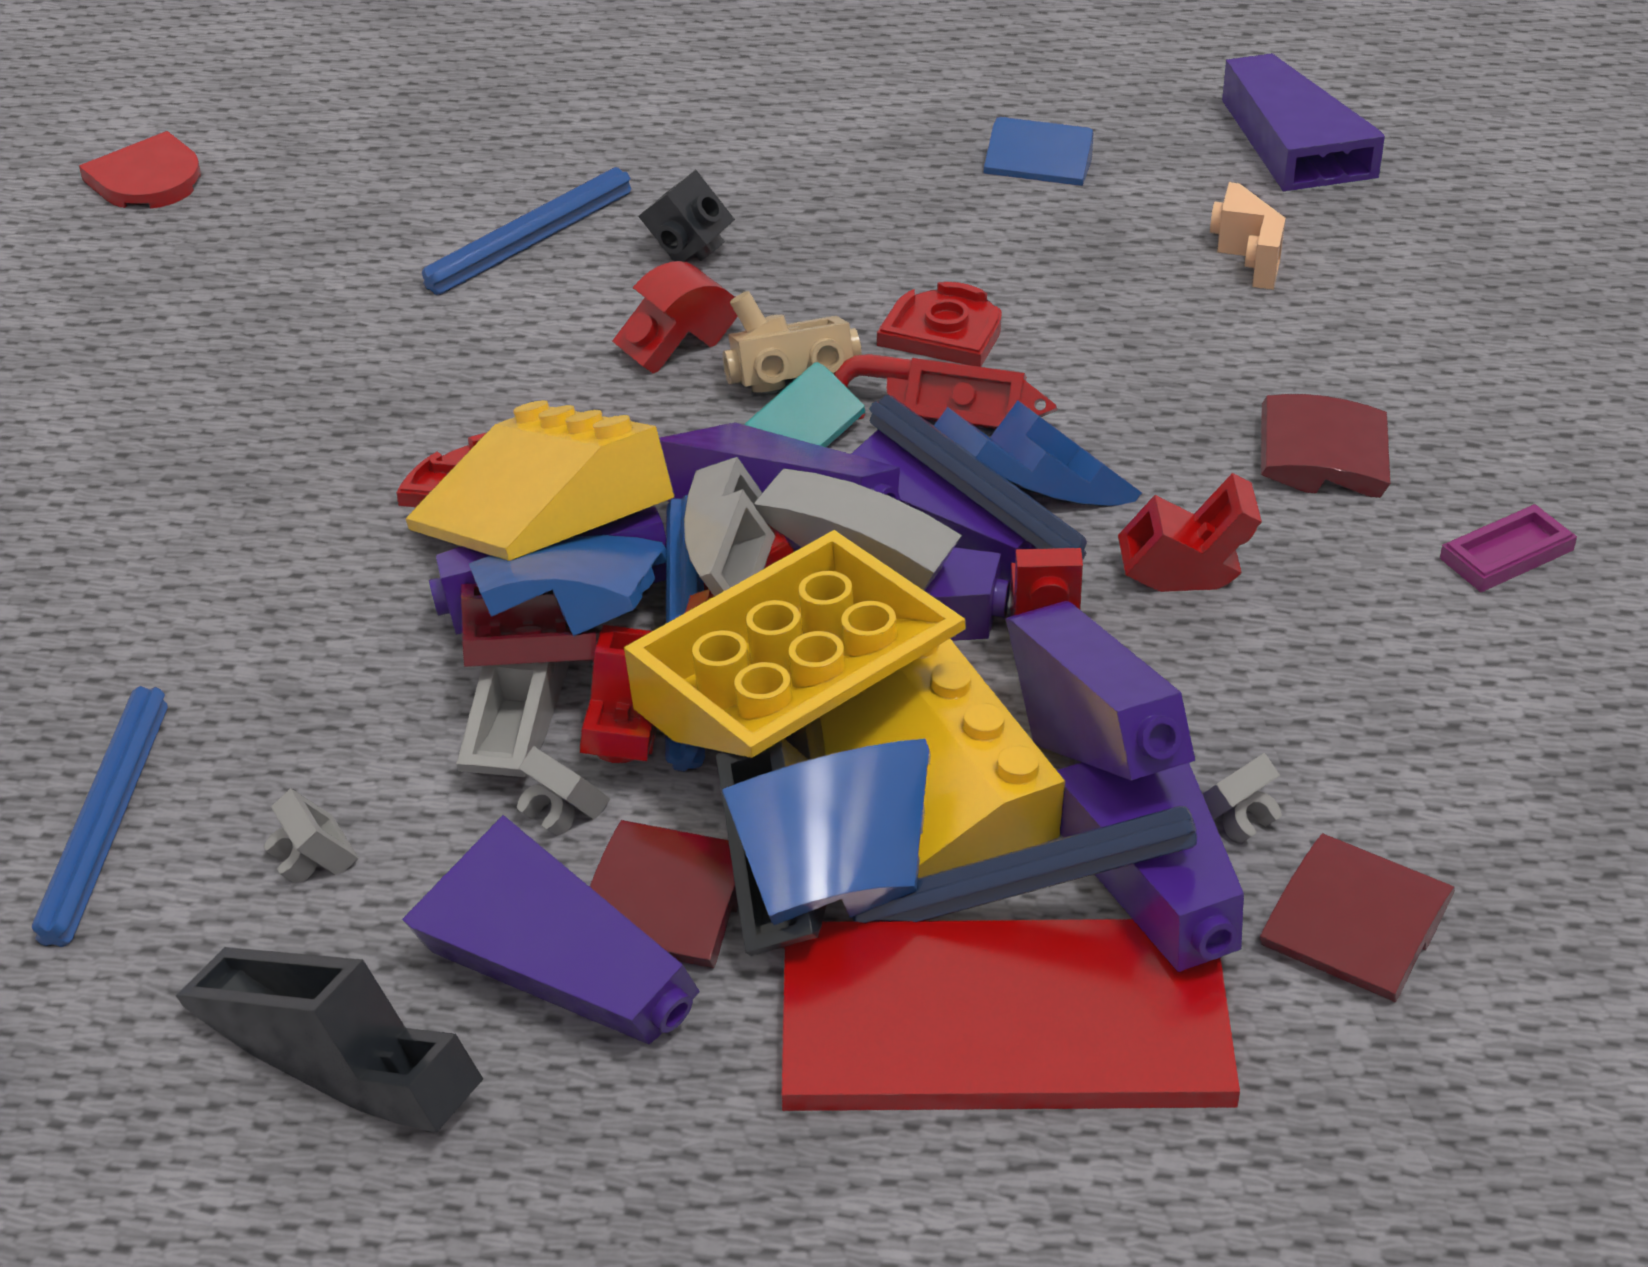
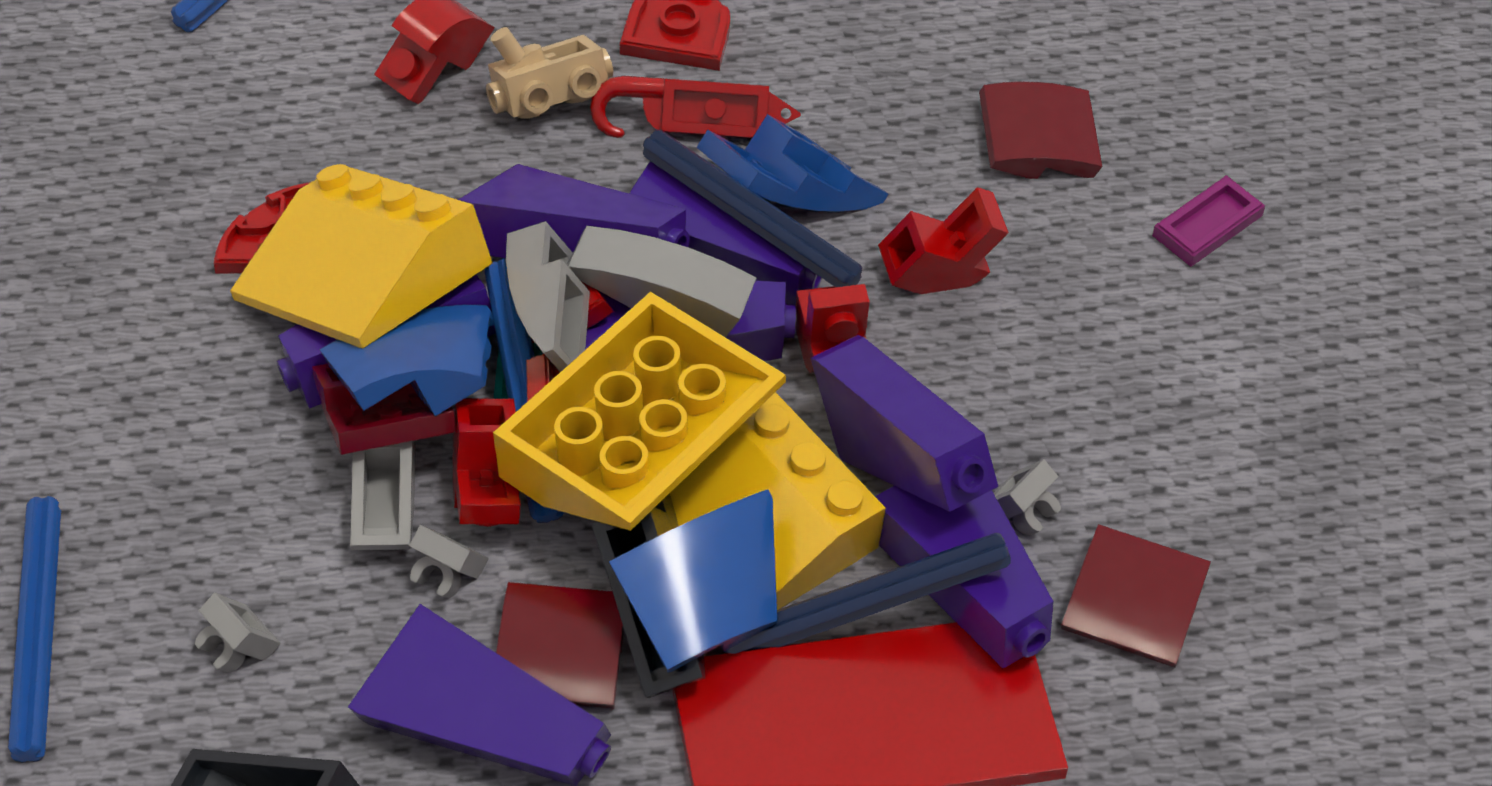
camera: 15 degrees left, 10 degrees up
(811, 408) = (579, 141): teal slope -> none

